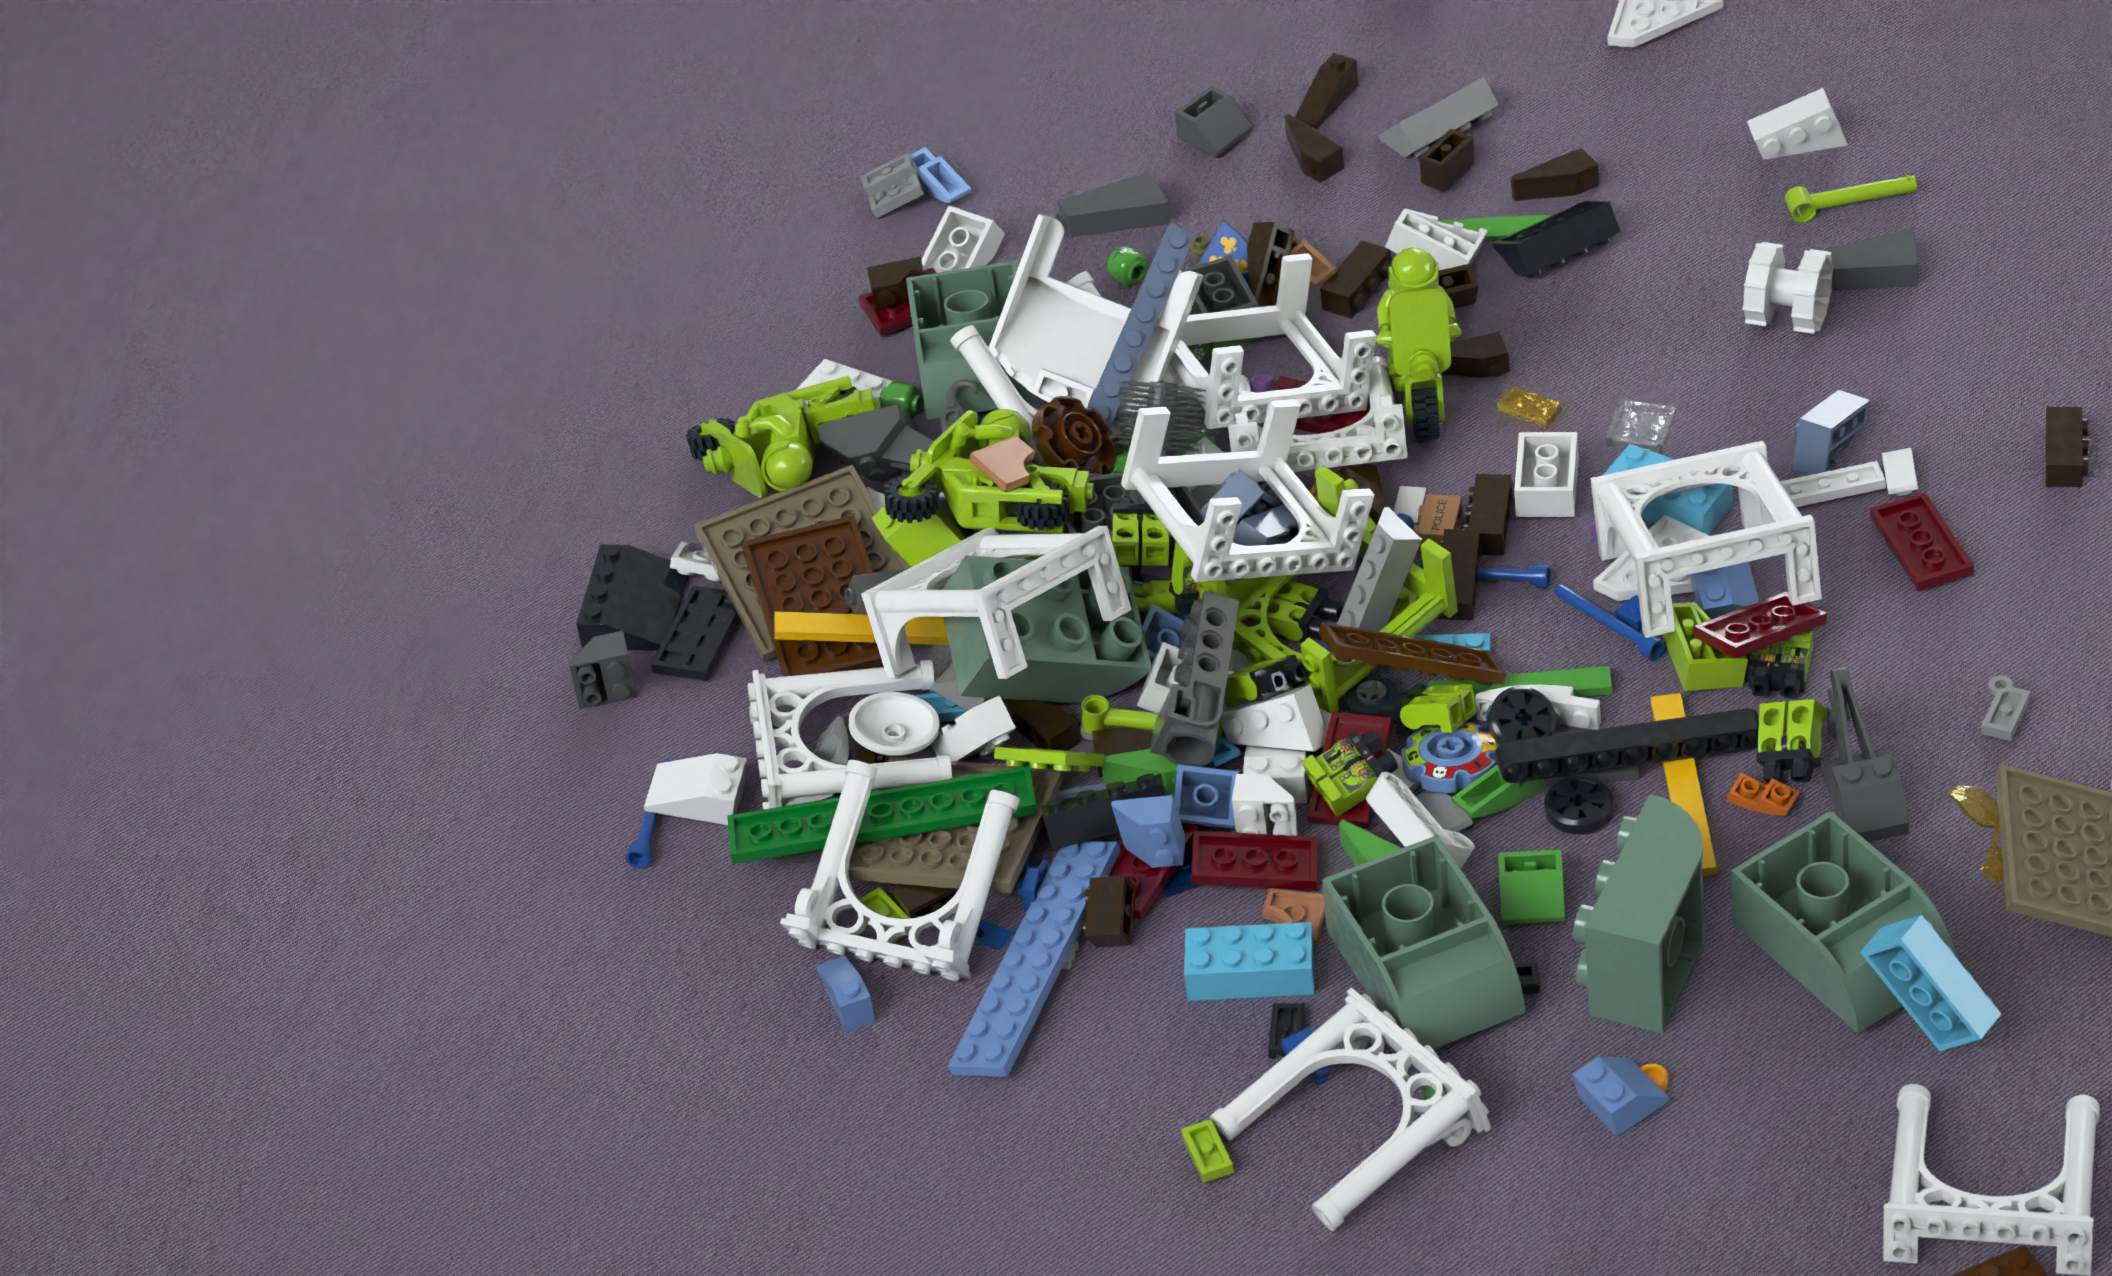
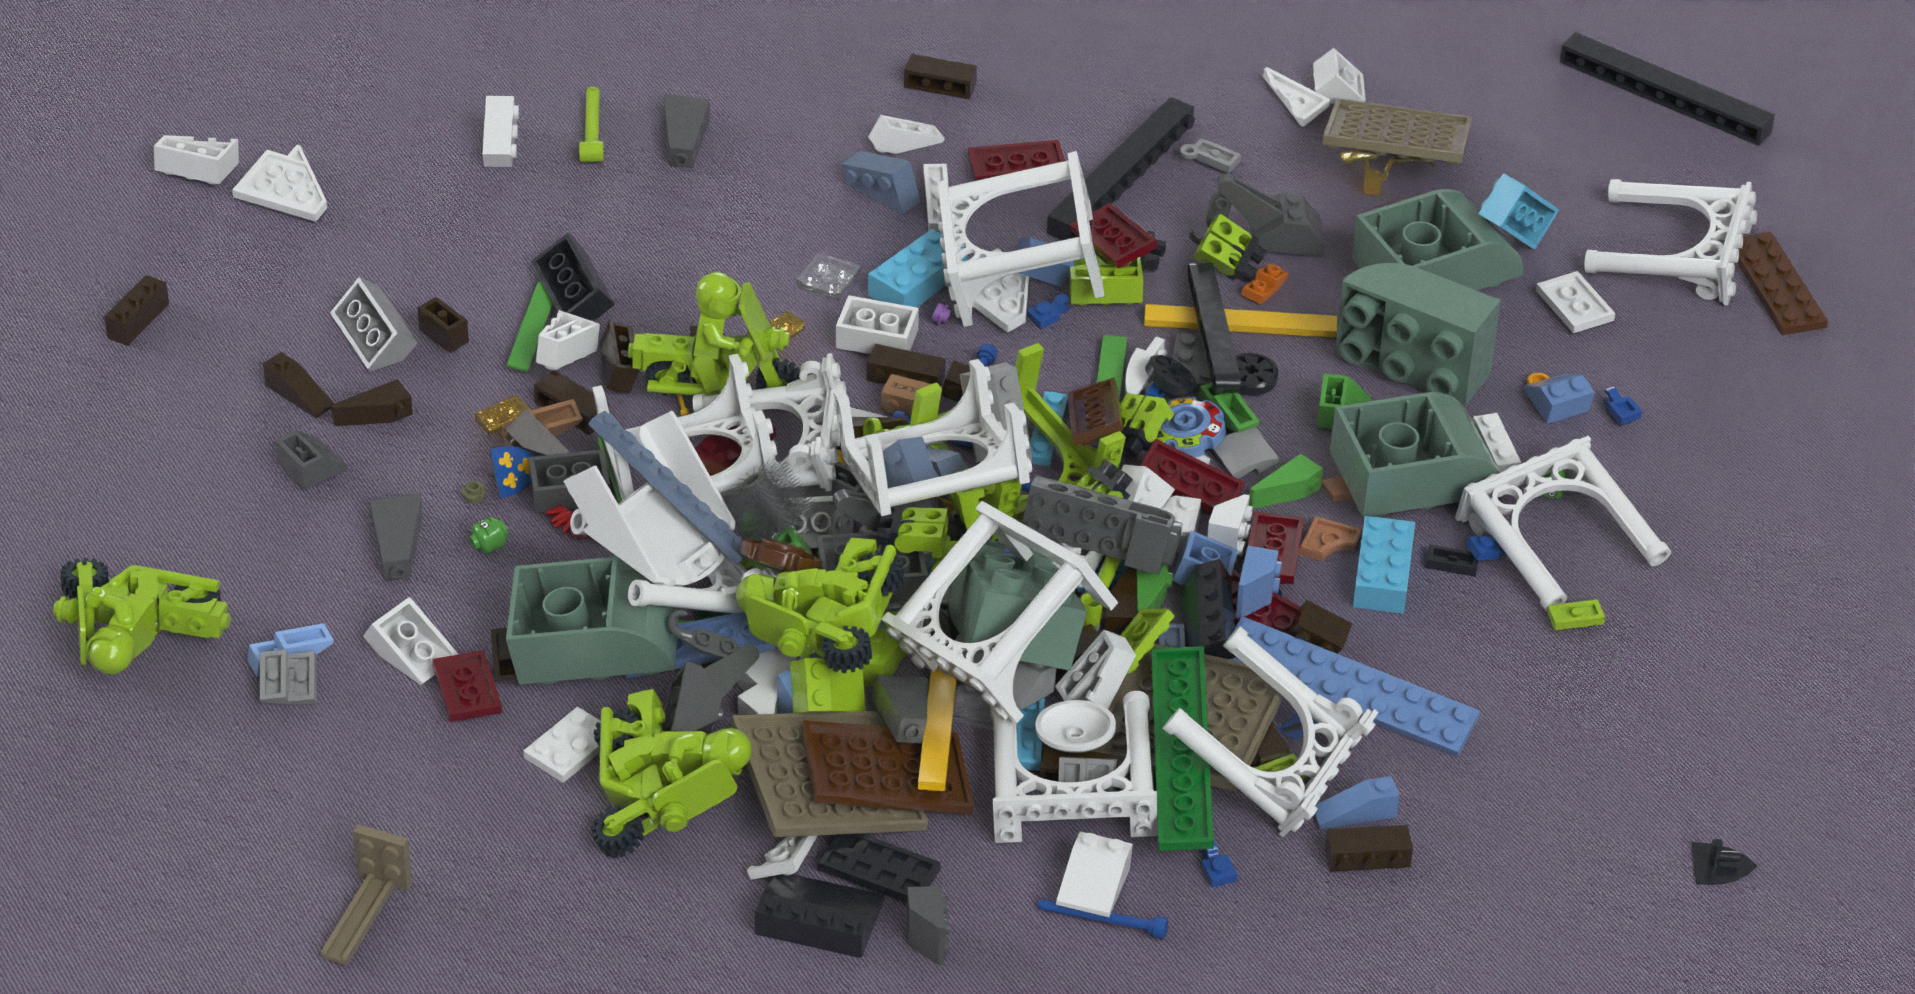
camera: 90 degrees left, 0 degrees up
(630, 305) = (385, 865): none -> dark tan bracket
(738, 890) = (1217, 868): none -> blue plate
(774, 1005) = (1368, 848): none -> dark brown brick
(889, 281) = (457, 680): dark brown slope -> none
(903, 394) = (612, 696): bright green head -> none
(939, 58) = (135, 609): none -> lime piece
(1004, 462) = (846, 571): tile -> none
(1326, 237) = (493, 417): none -> clear yellow plate
(1349, 770) = (1207, 470): hips -> none
(1411, 820) = (1269, 447): white beam -> none
(1491, 1039) = (1496, 440): none -> white brick
(1559, 177) = (490, 265): dark brown slope -> none
(1618, 1162) = (1622, 409): none -> blue plate
(1649, 647) = (1087, 311): blue piece -> none
(1803, 290) = (719, 161): white piece -> none
(1825, 1094) = (1575, 302): none -> white plate
(1900, 472) = (936, 155): white slope -> none
(1930, 437) = (902, 135): none -> white slope
(1954, 634) = (1126, 163): none -> black brick

